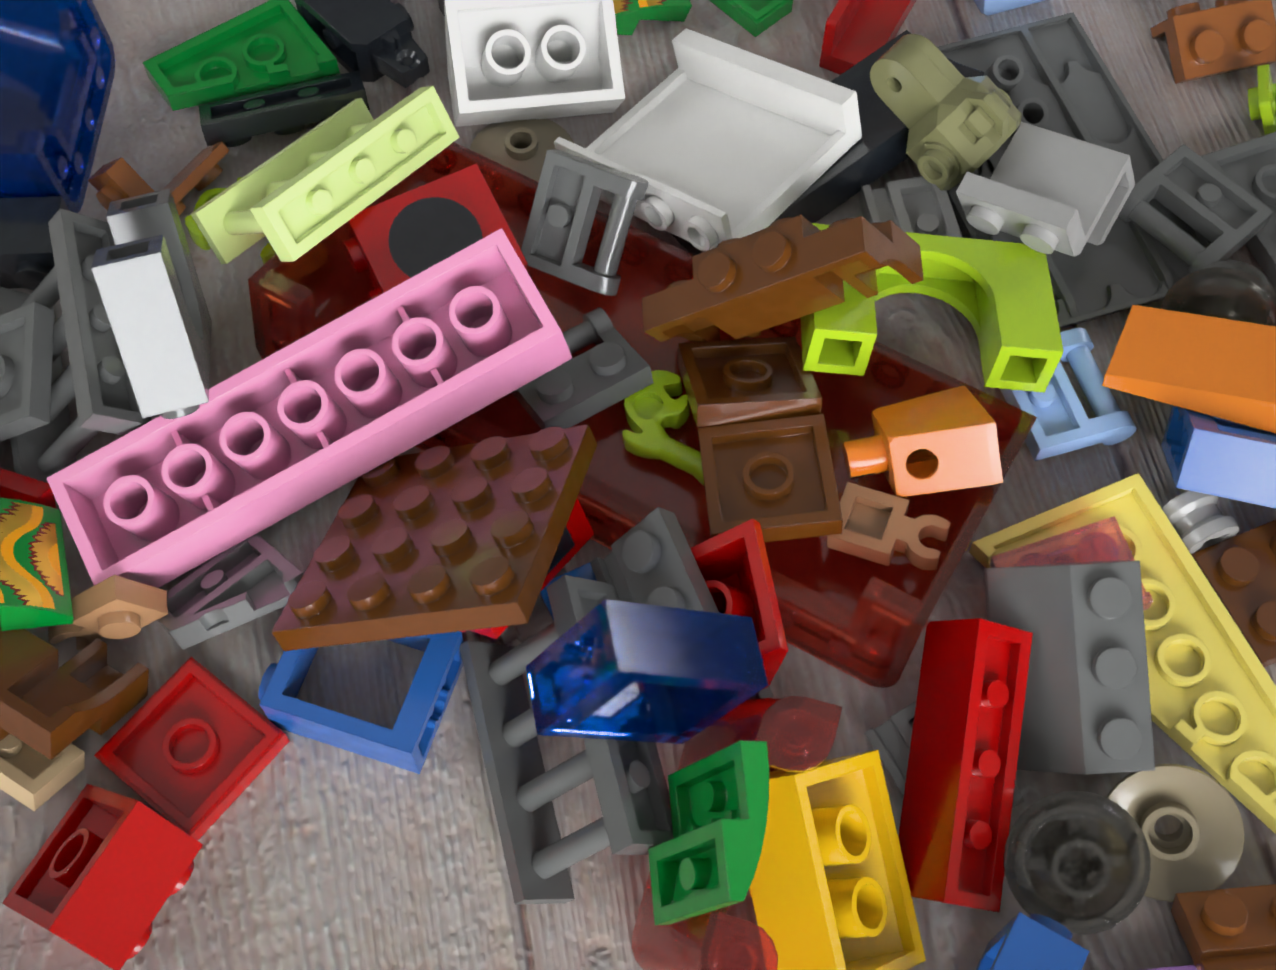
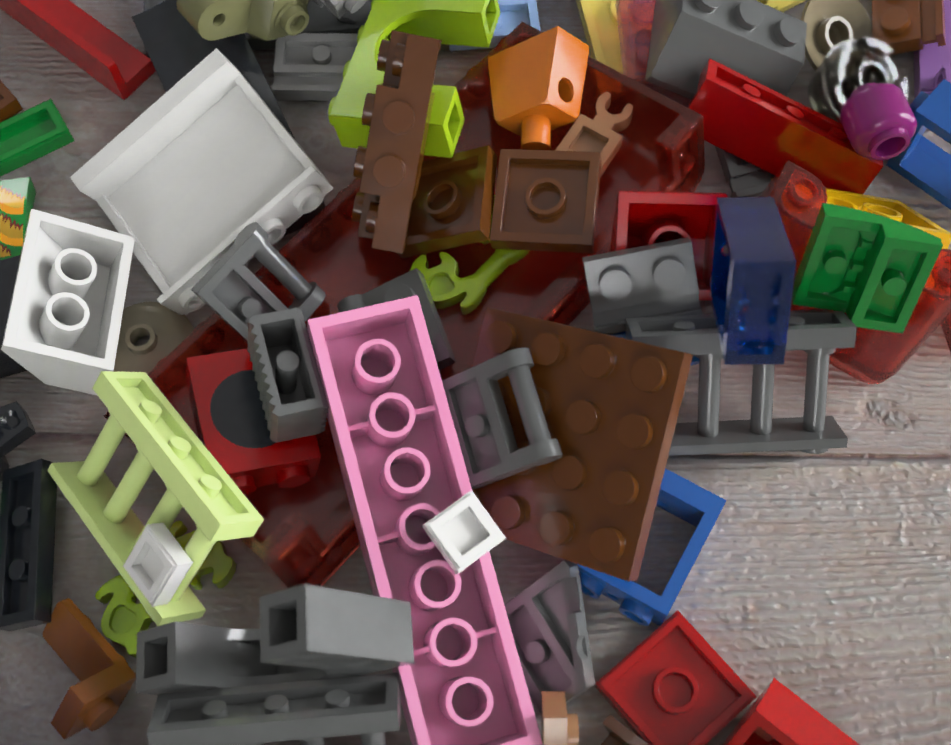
camera: 75 degrees left, 5 degrees up
(244, 192) = (157, 564): none -> white tile
(299, 444) = (463, 532): none -> white tile
(443, 458) = (484, 424): none -> dark grey plate
(454, 229) = (287, 375): none -> dark grey brick
(994, 867) = (878, 121): none -> magenta head

